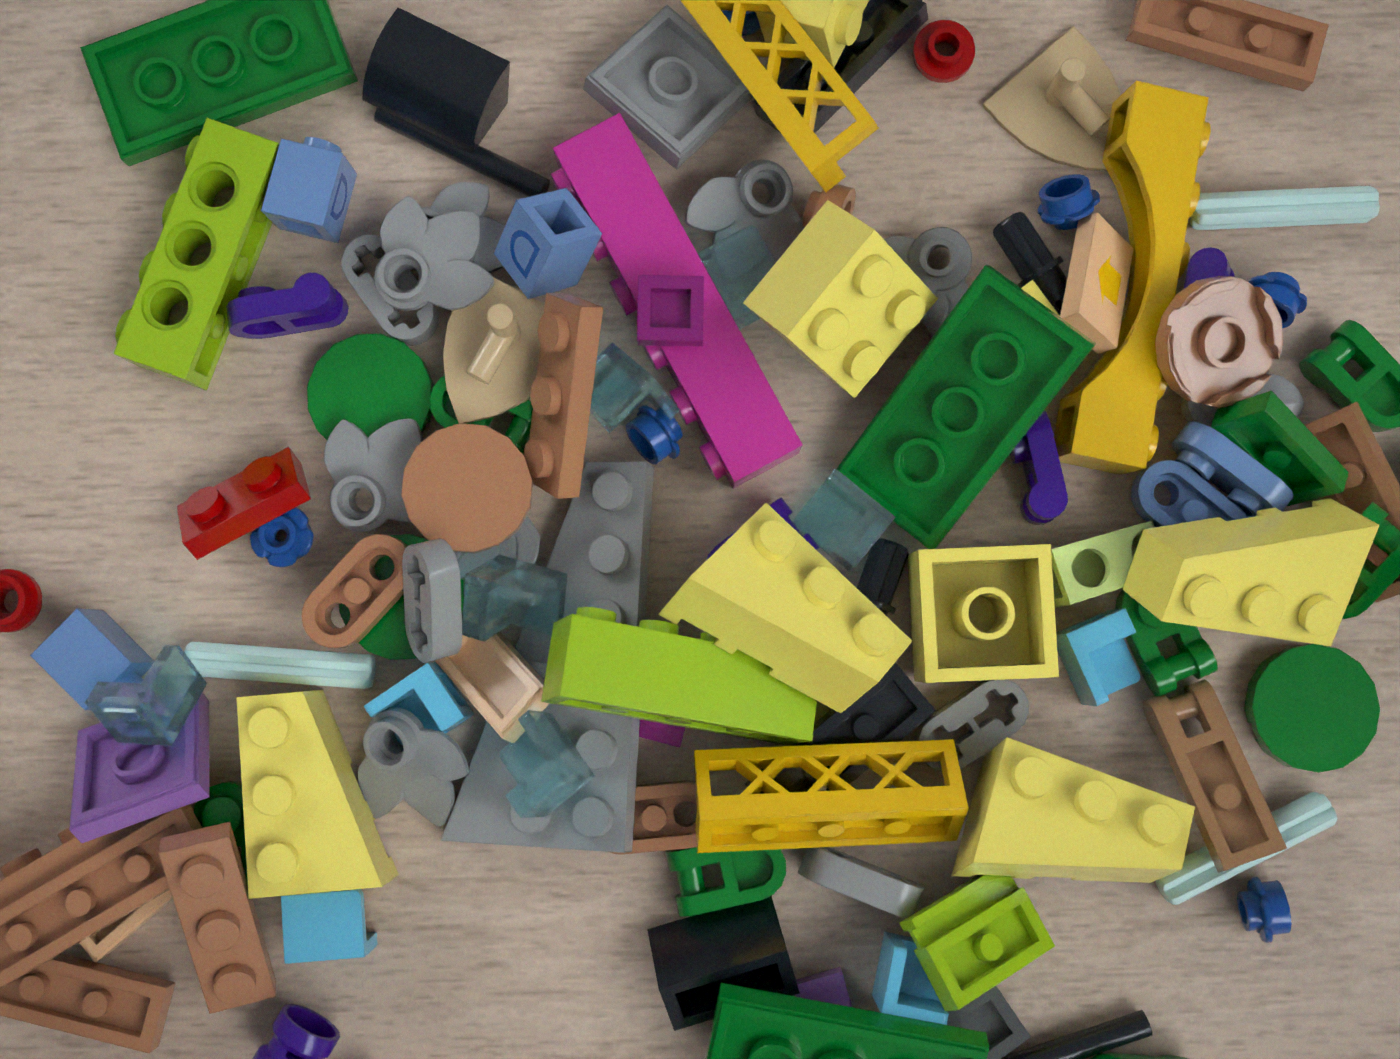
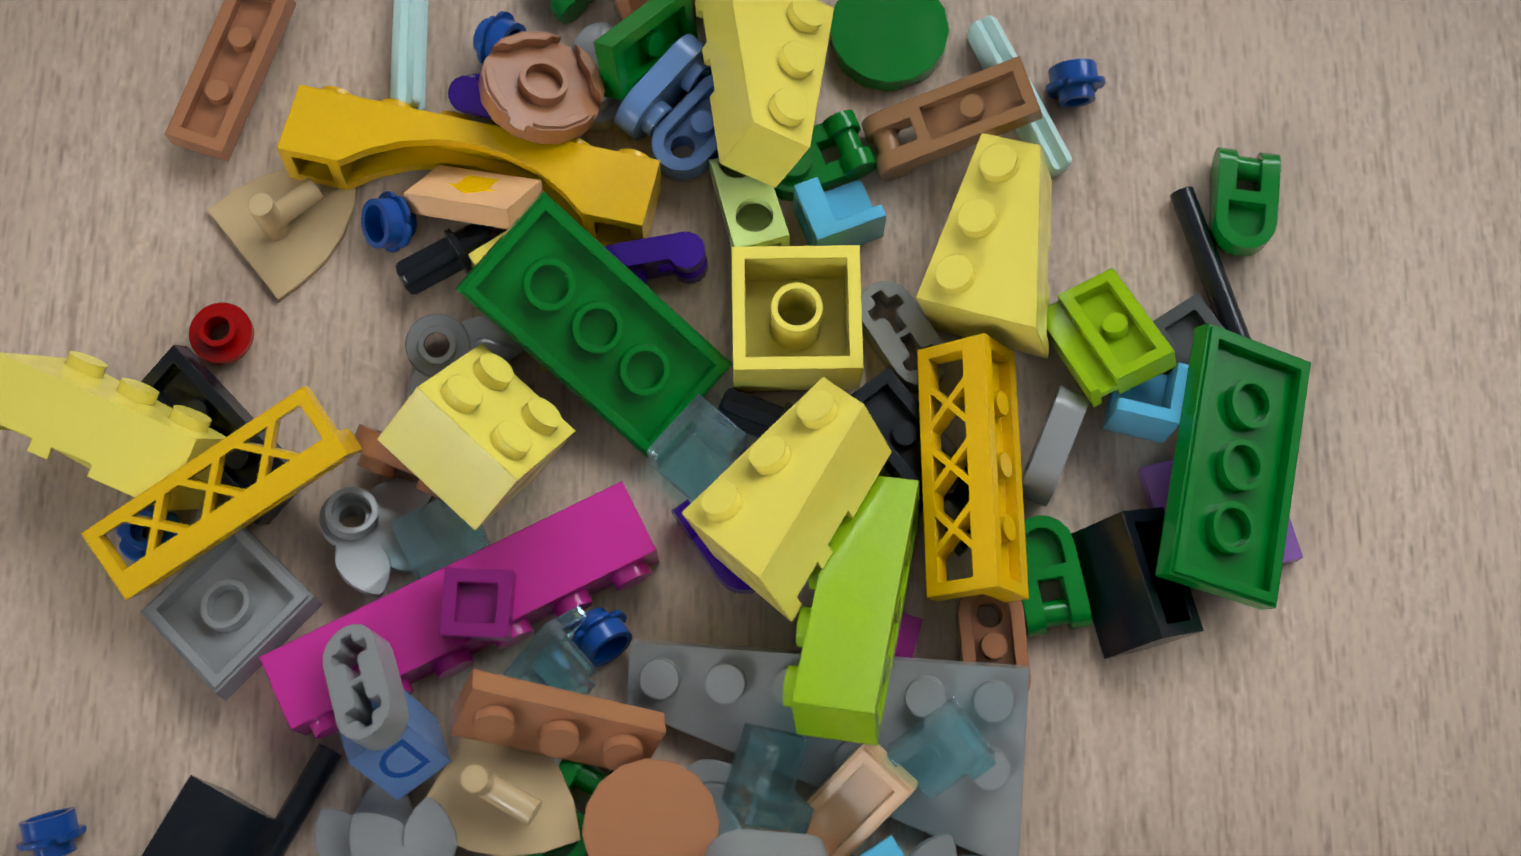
camera: 90 degrees left, 10 degrees down
(588, 213) = (352, 692): none -> light grey beam

